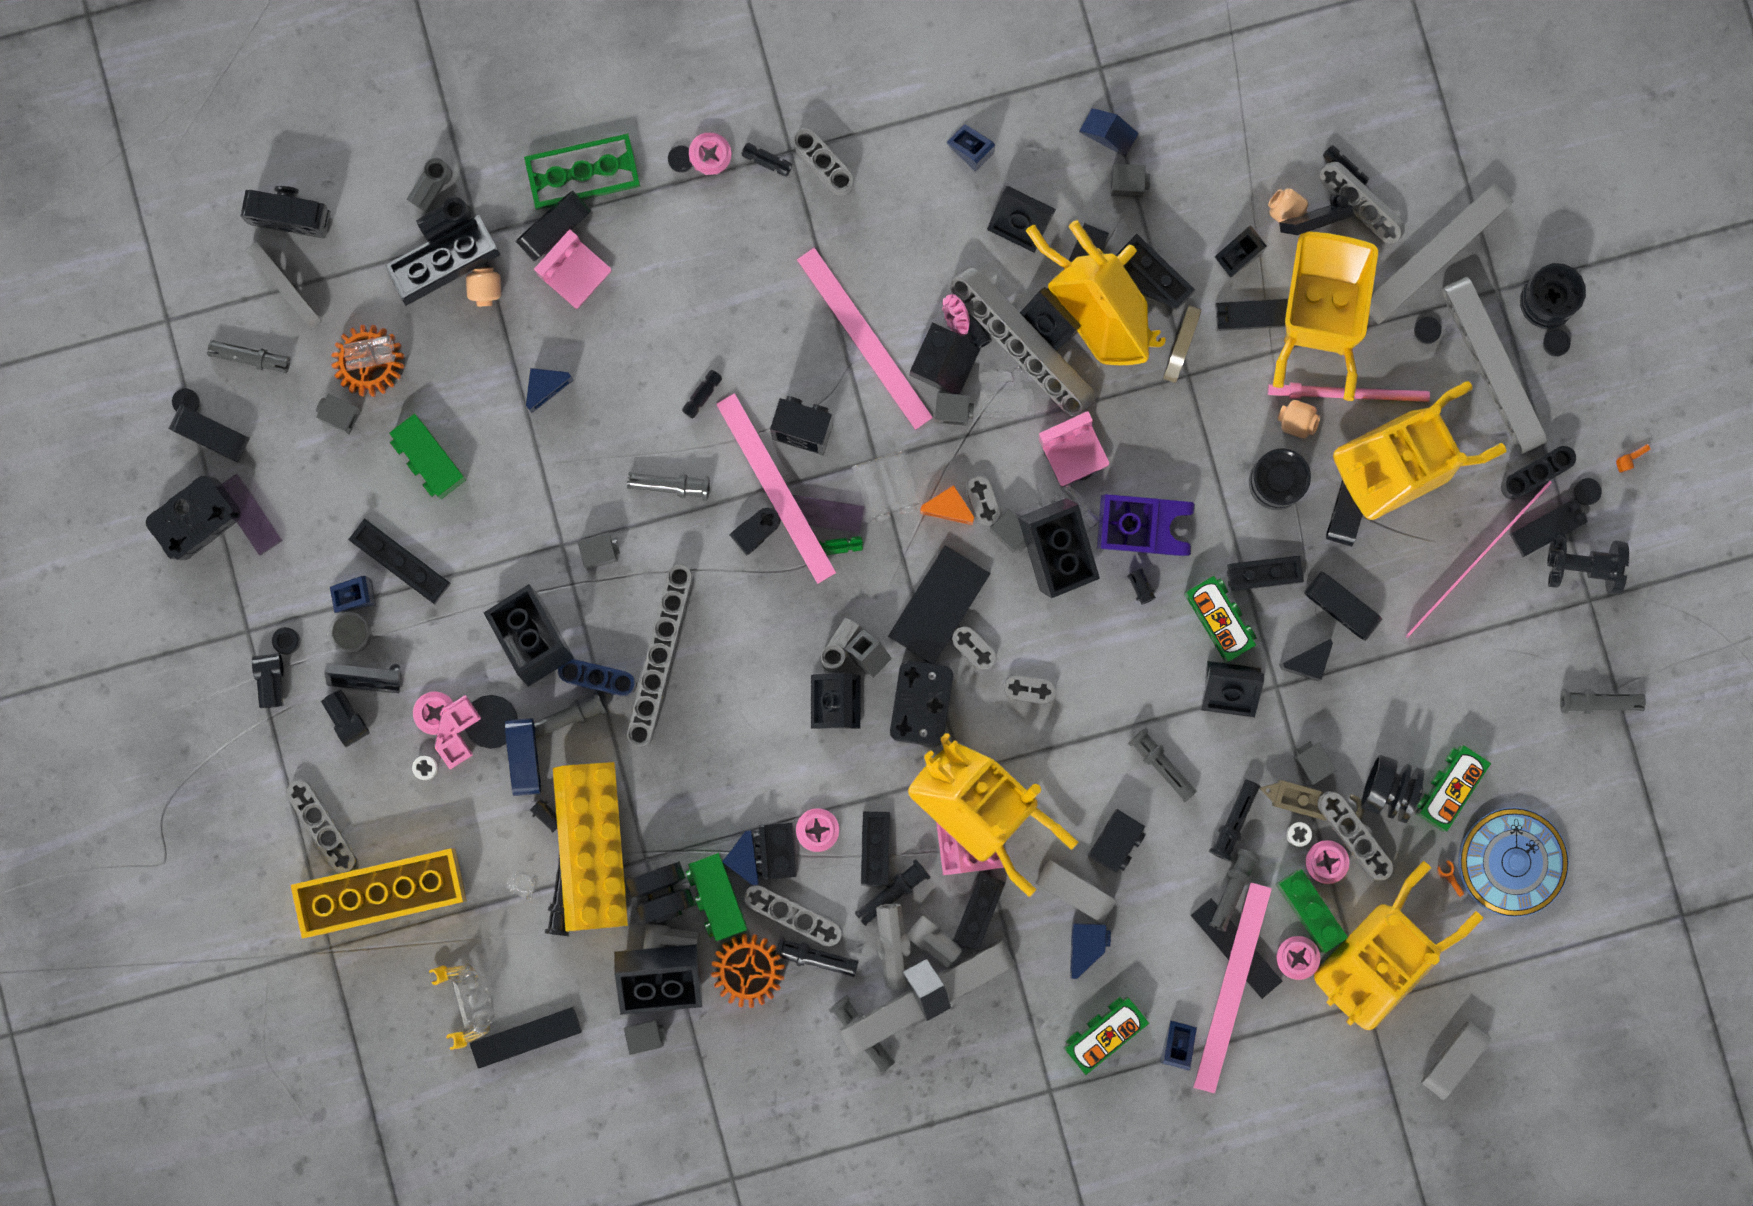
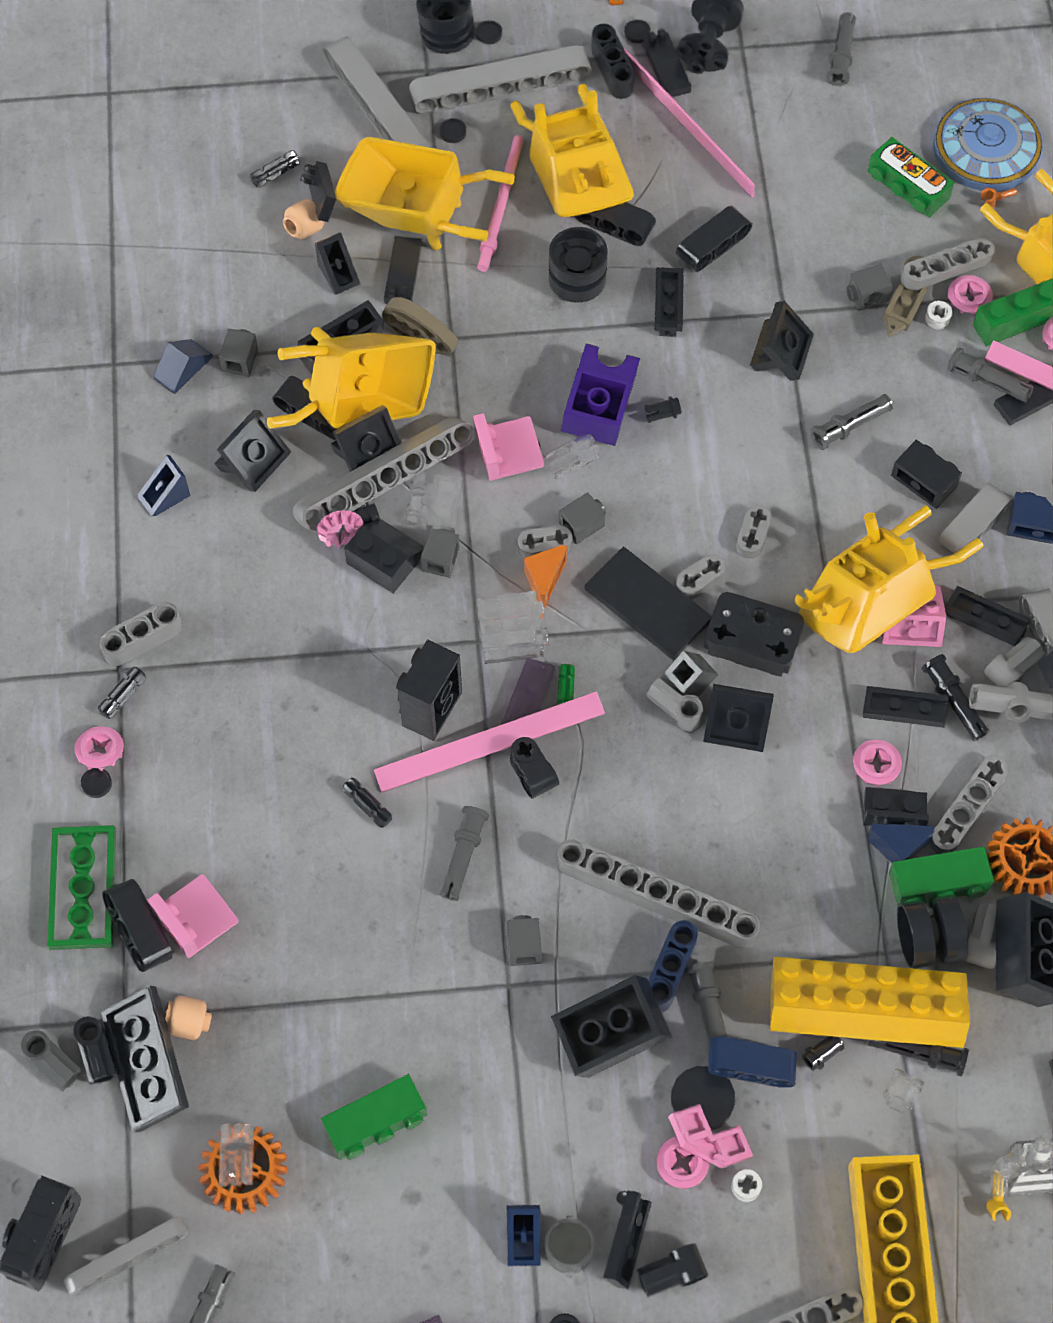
camera: 80 degrees left, 20 degrees down
(337, 413) = (298, 1216): dark grey brick -> none
(399, 561) = (492, 1175): black tile -> none
(545, 385) = (319, 970): dark blue slope -> none
(804, 955) = (1016, 798): black pin -> none
(864, 338) = (341, 630): bright pink piece -> none
(1059, 548) = (611, 466): black brick -> none
(1221, 618) = (709, 344): brick -> none
(1230, 832) = (928, 371): black pin -> none
(1299, 419) = (519, 244): light nougat head -> none
(1309, 663) = (765, 272): black slope -> none
(1365, 198) = (312, 155): light grey beam -> none
(1394, 789) = (906, 219): black wheel -> none

